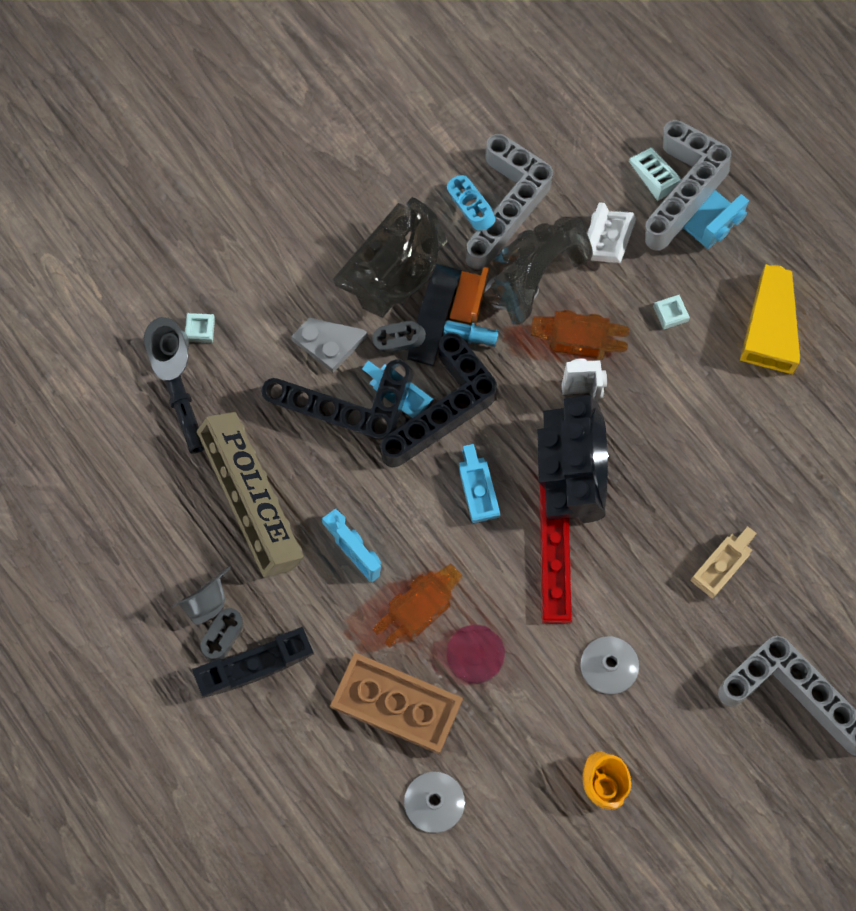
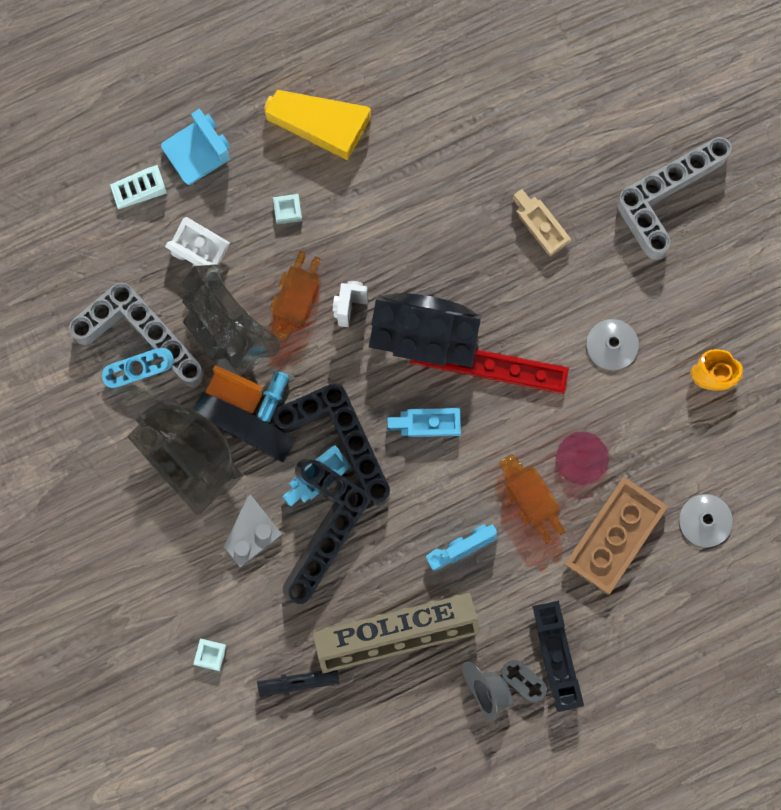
camera: 75 degrees left, 10 degrees up
(166, 348) = (233, 688): dark grey piece -> none
(399, 342) = (258, 464): dark grey beam -> none
(709, 165) = (167, 156): light grey beam -> none

